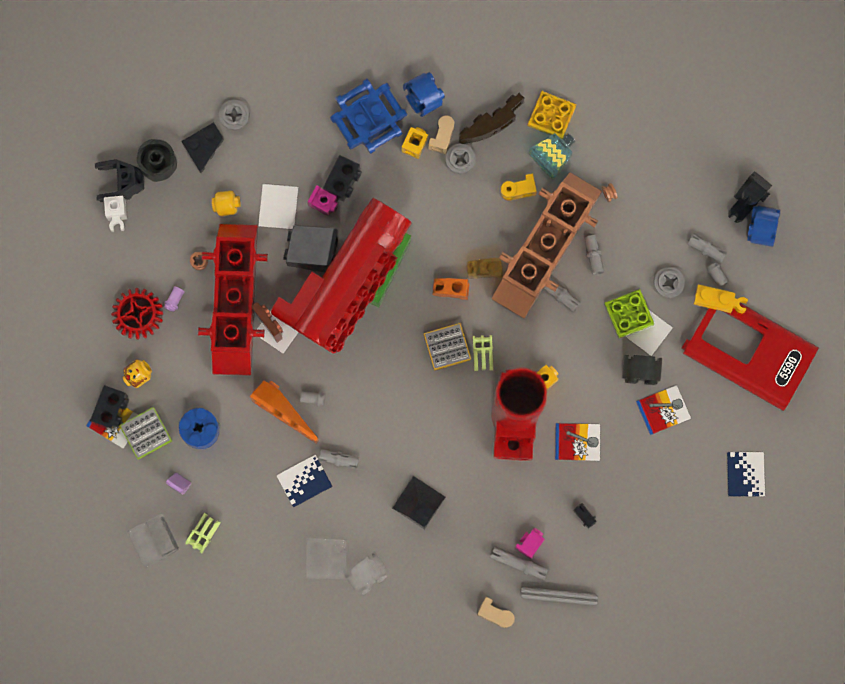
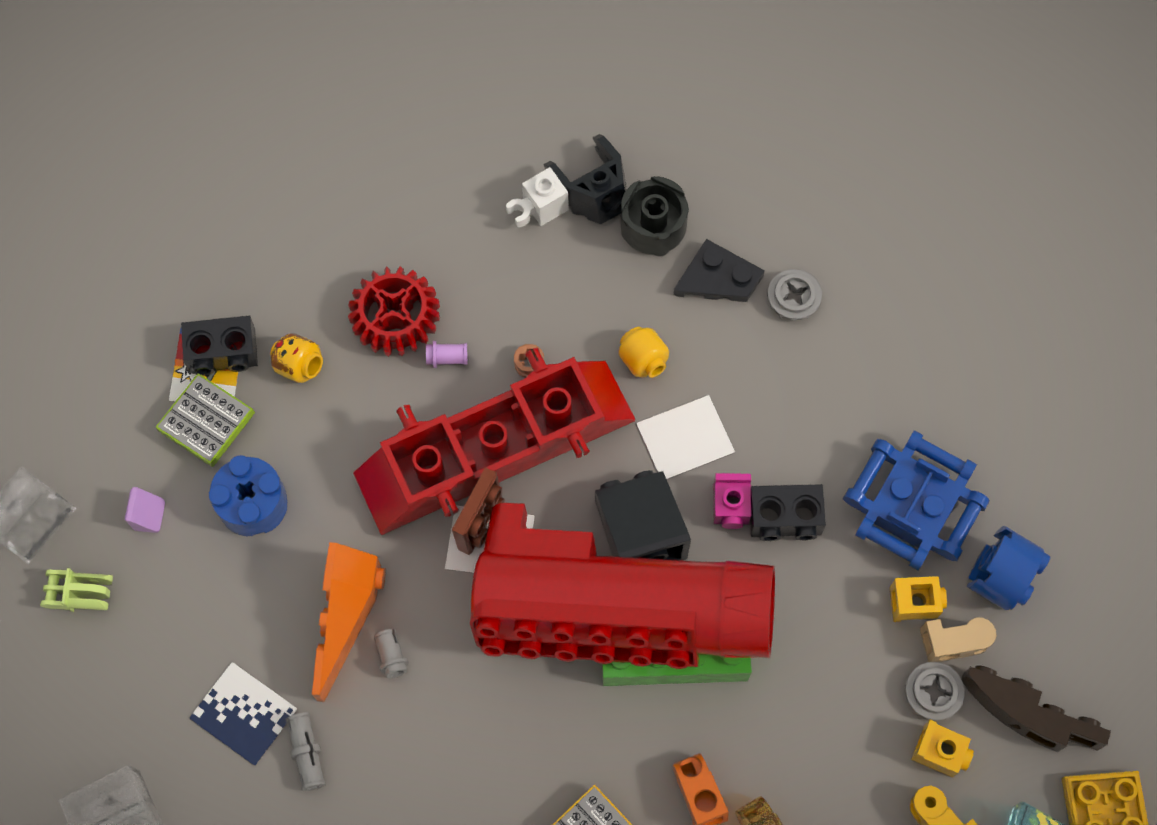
camera: 65 degrees right, 10 degrees down
(486, 176) = (929, 751): none -> yellow brick

